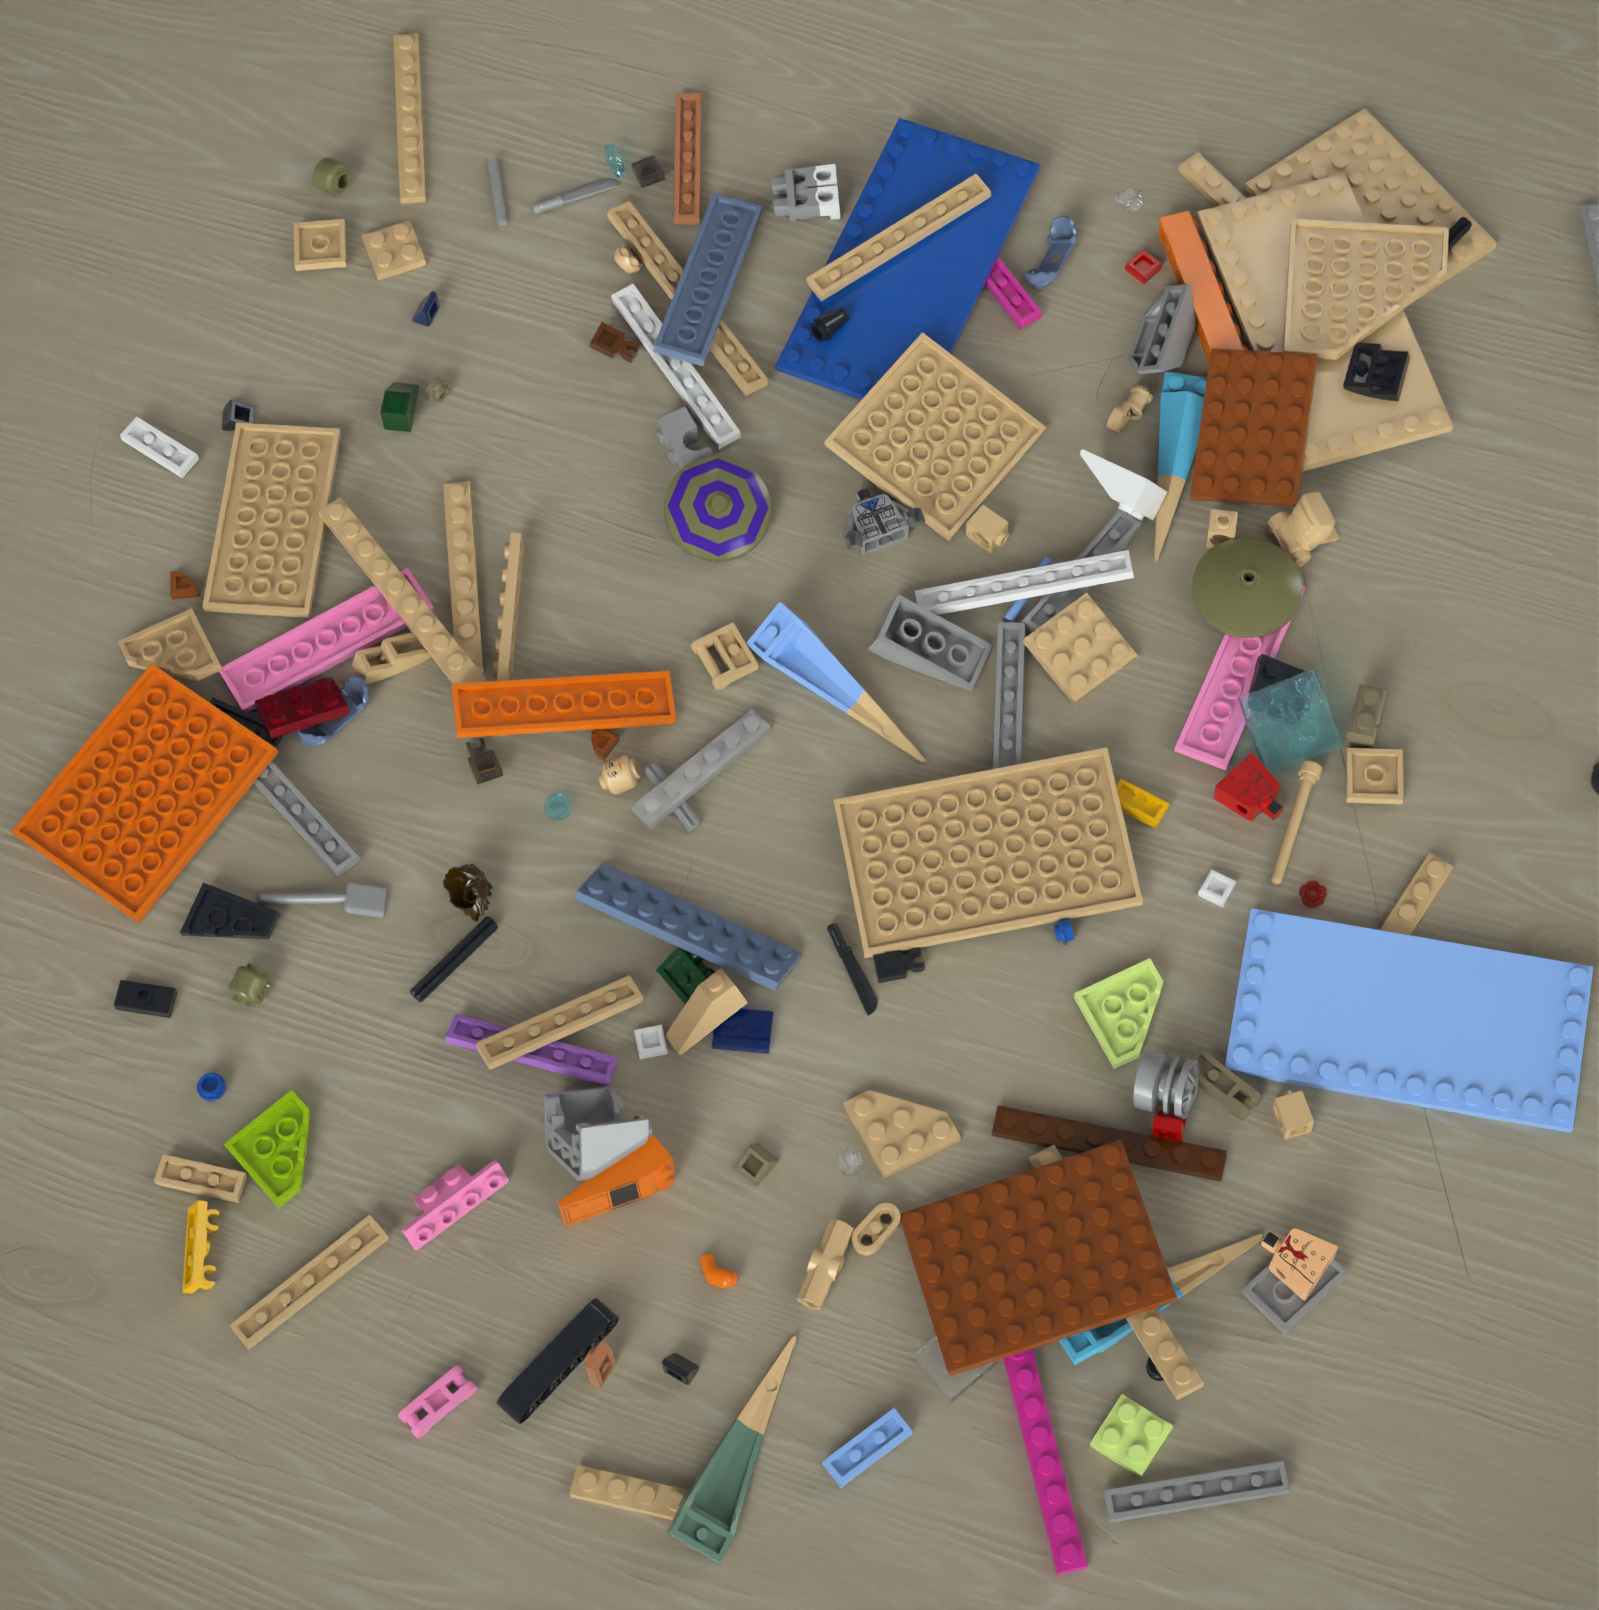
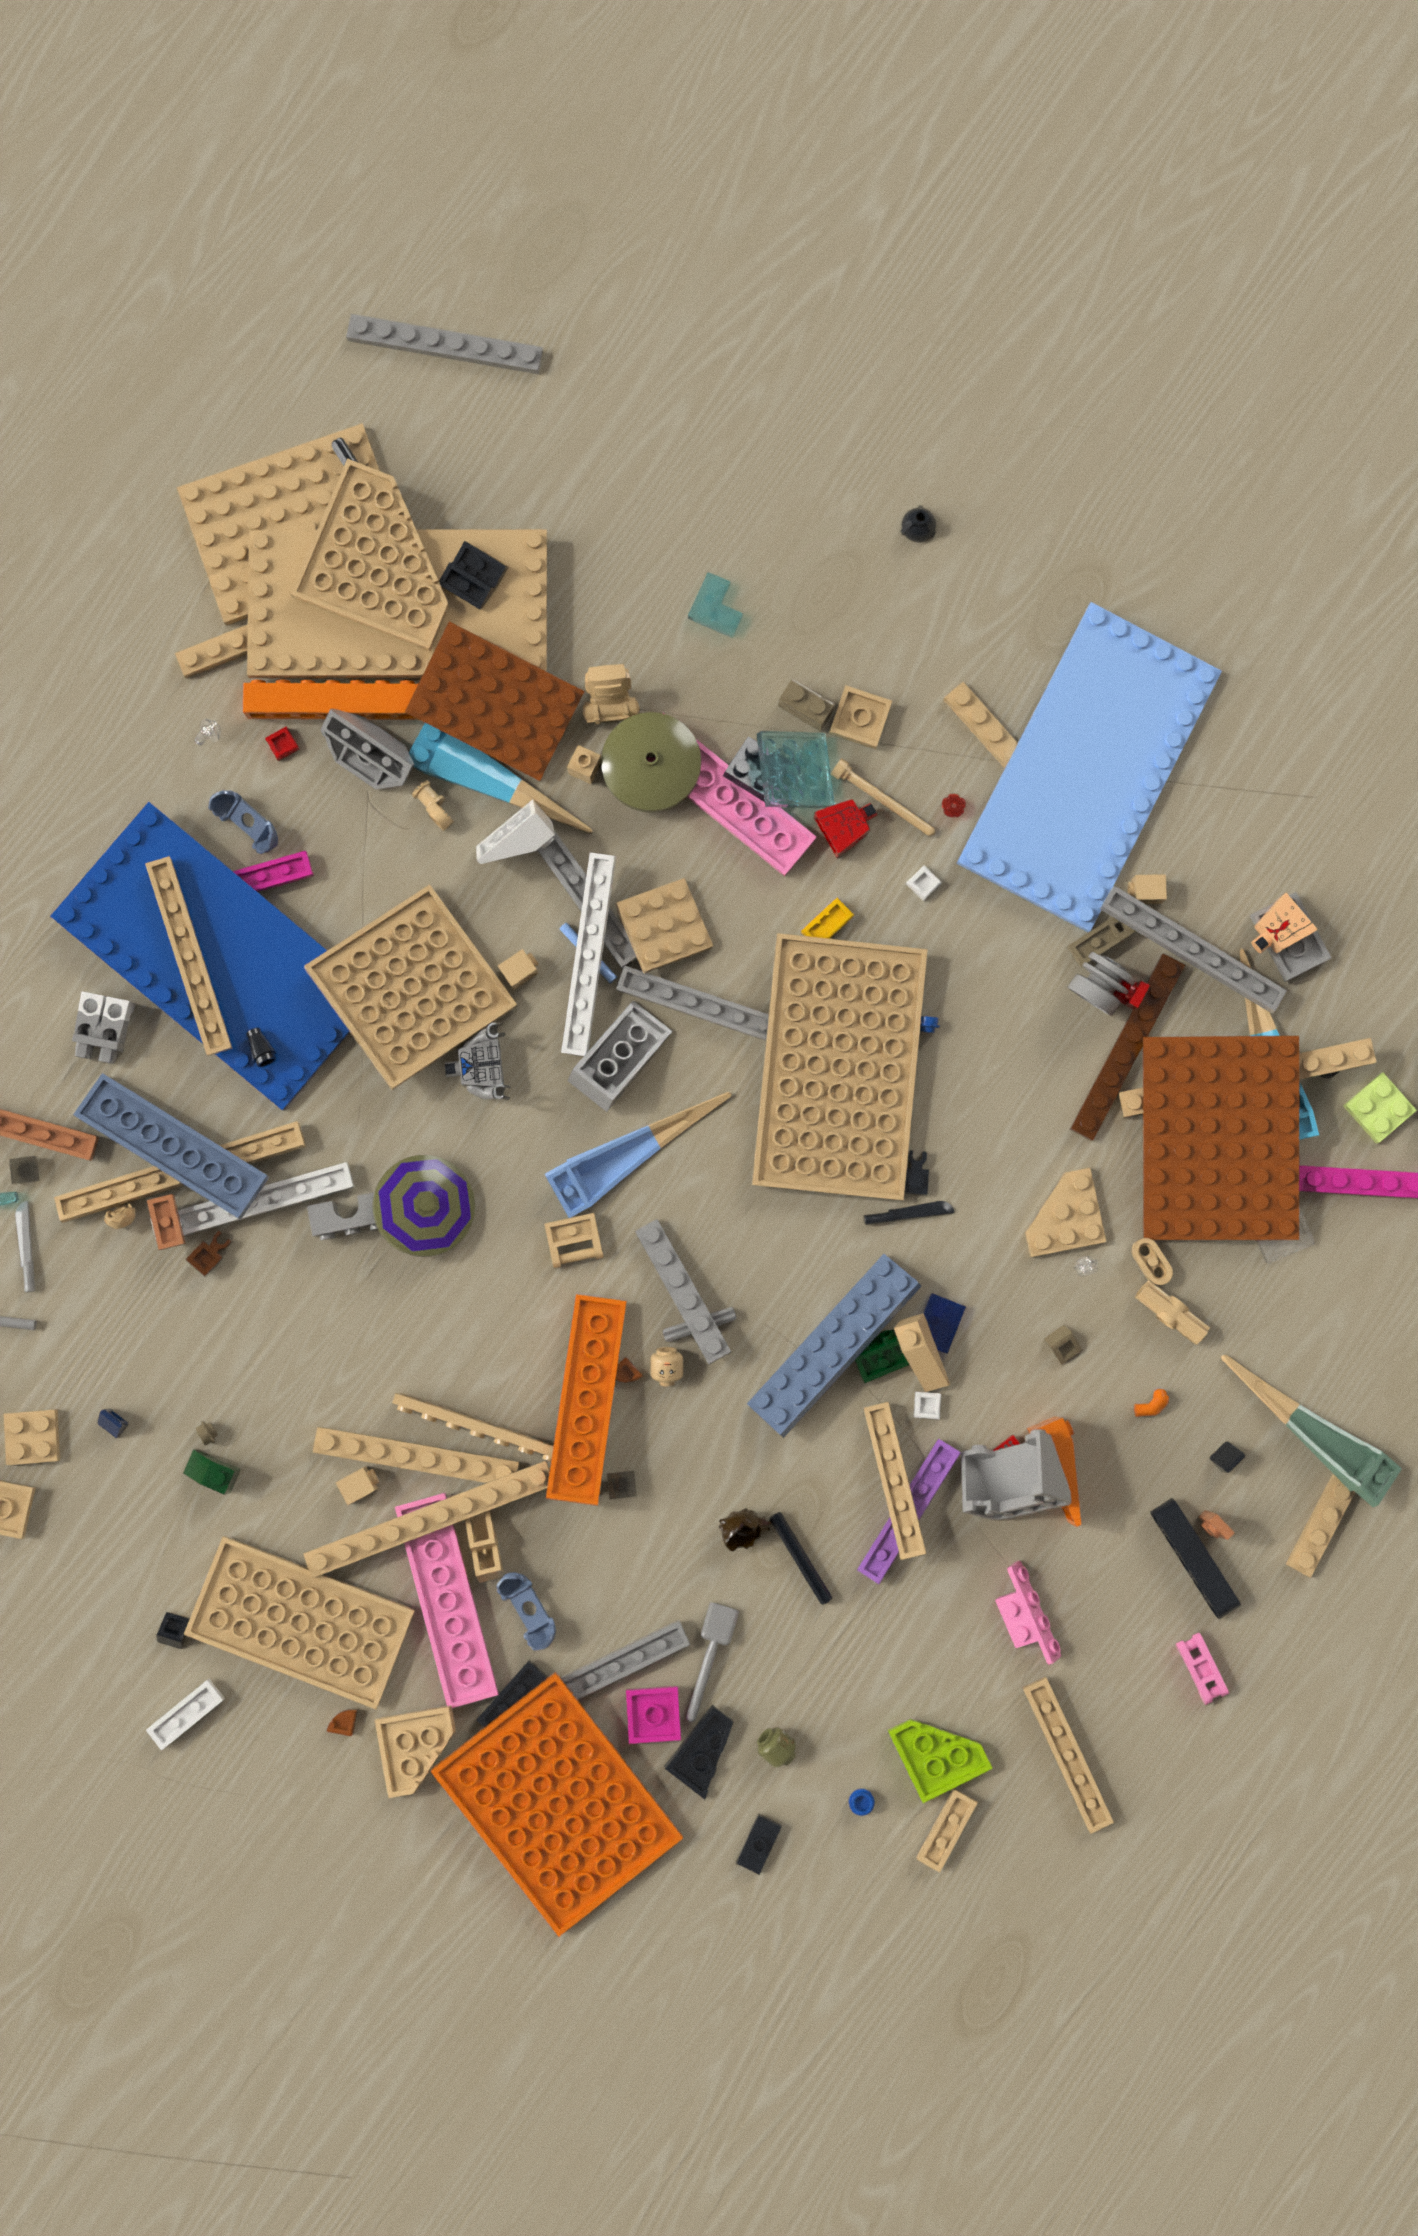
camera: 80 degrees left, 20 degrees up
(198, 1247) = (1011, 1846): yellow plate -> none
(256, 860) = (653, 1714): none -> dark pink plate
(301, 707) = (514, 1639): dark red plate -> none
(420, 530) = (358, 1485): none -> tan brick
(557, 806) = (679, 1429): clear light blue plate -> none
(632, 293) = (166, 1222): none -> nougat plate
(867, 1448) = (1336, 1323): light blue plate -> none
(1122, 1010) = (1015, 998): yellowish green plate -> none
(1239, 1175) = (1193, 949): none -> light grey plate
(1439, 601) = (709, 608): none -> clear light blue plate

